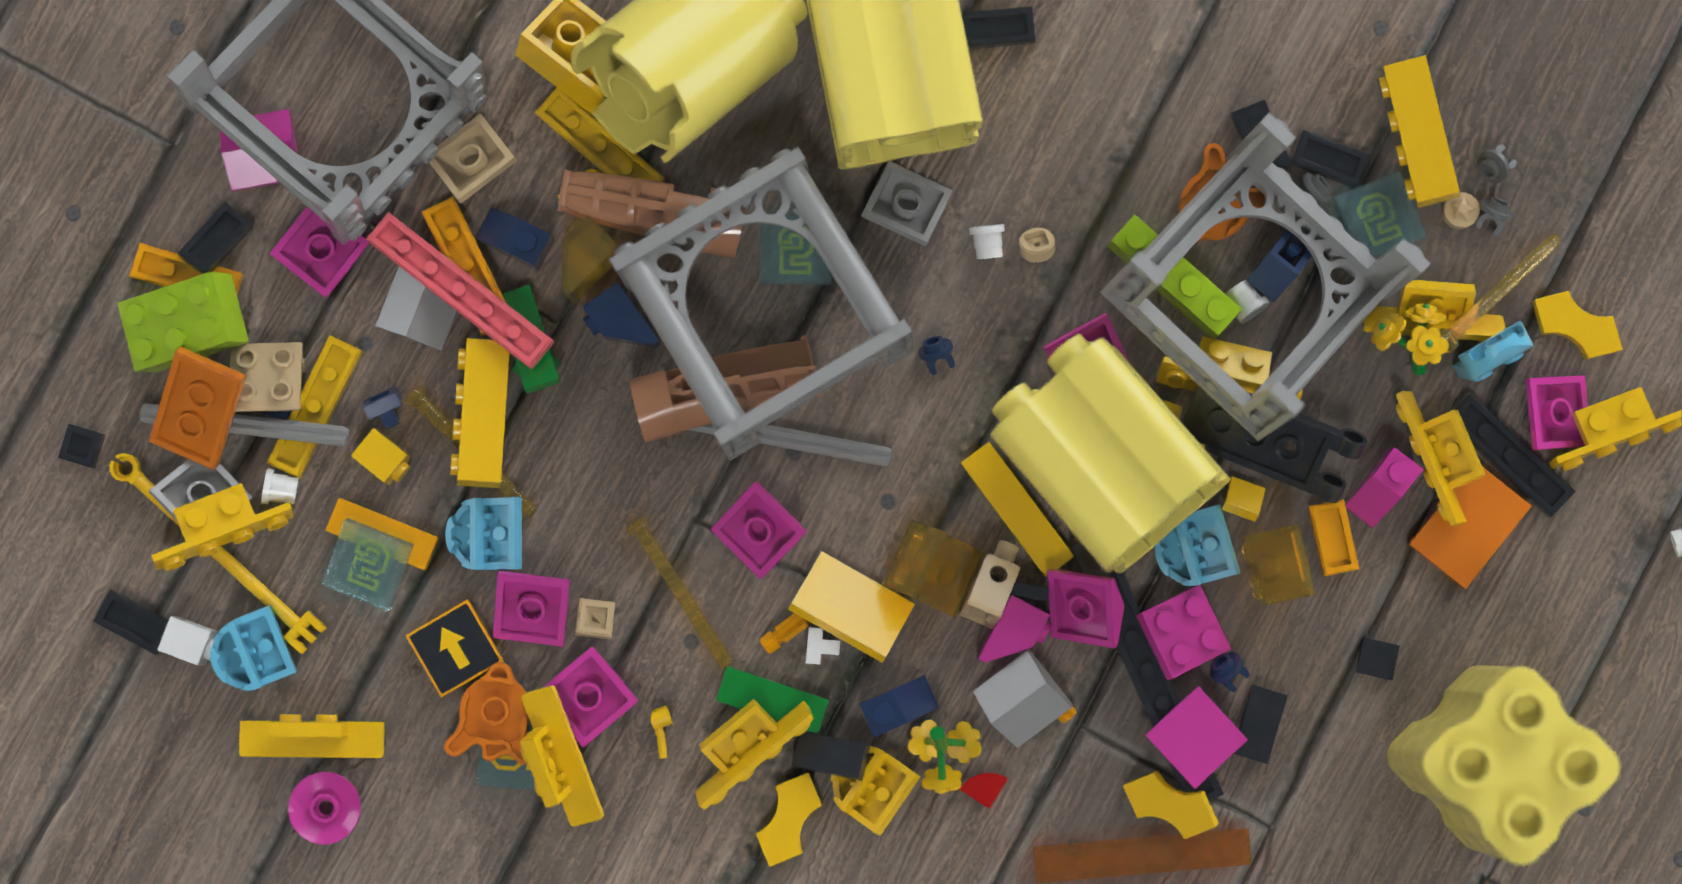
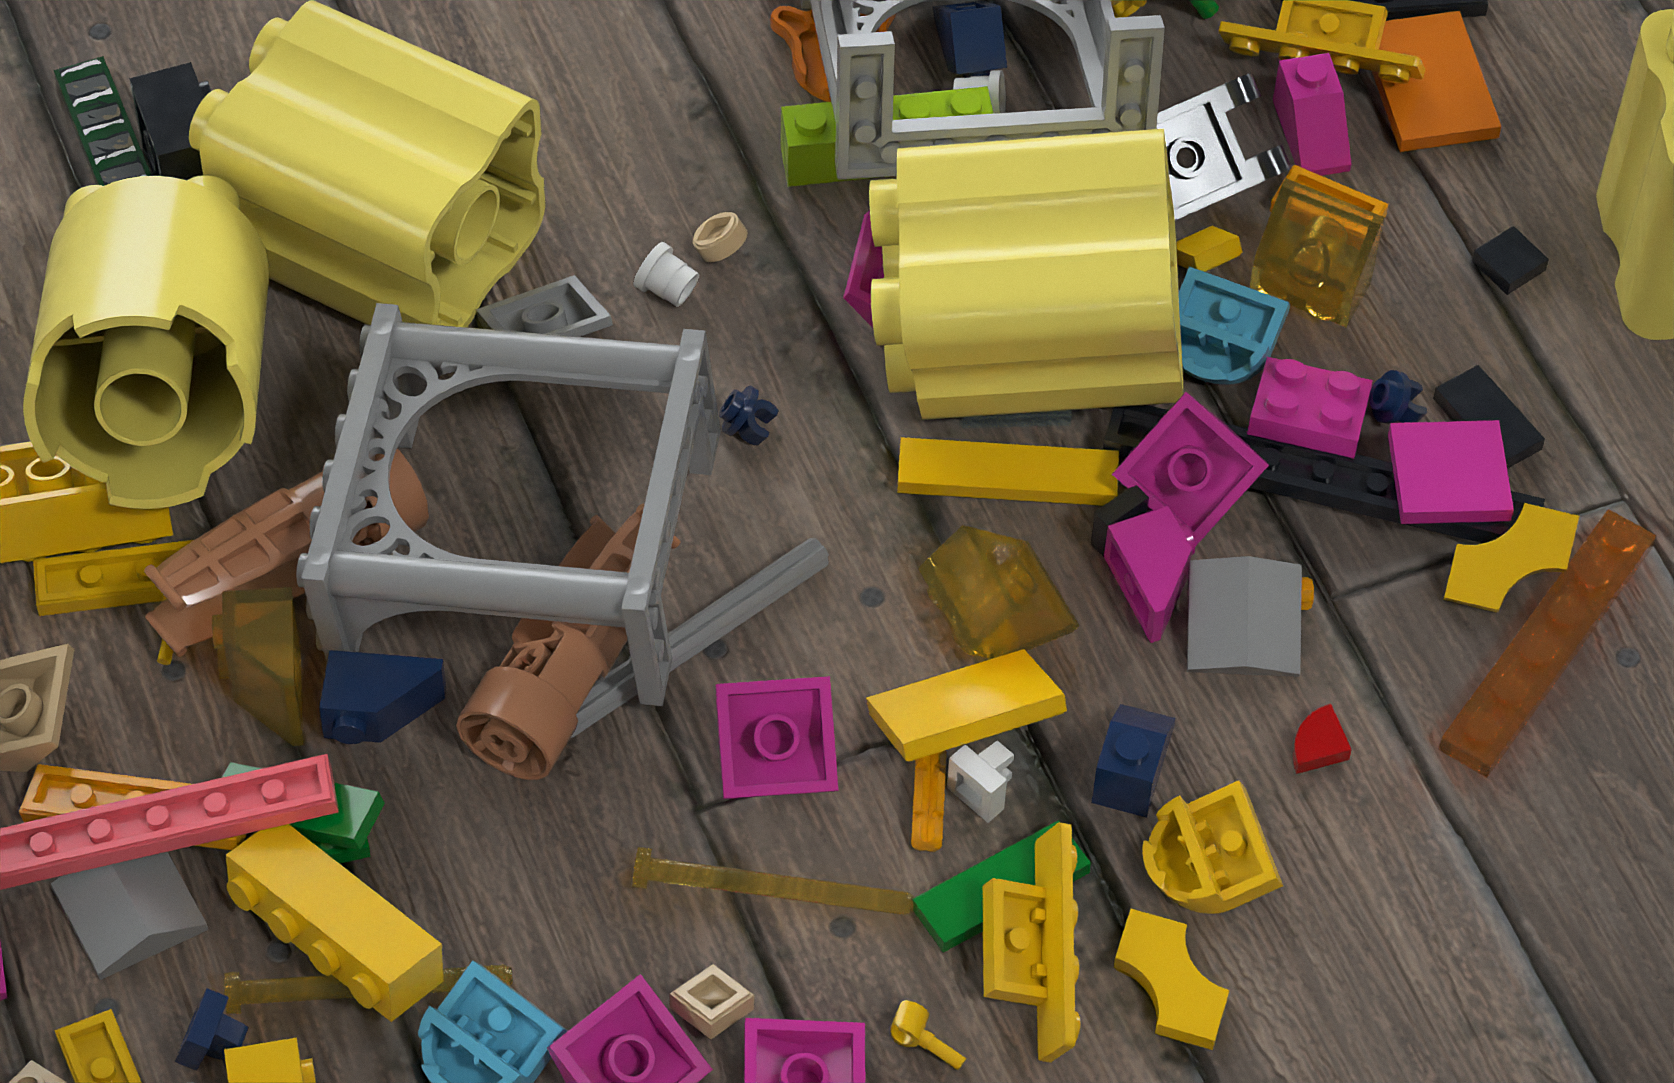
camera: 50 degrees left, 30 degrees down
(515, 238) = (162, 729): dark blue slope -> none
(789, 257) = (481, 468): clear light blue tile -> none
(831, 755) = (1132, 862): black tile -> none
(931, 742) = (1243, 722): yellow plant -> none
(986, 597) = (1082, 549): tan torso -> none

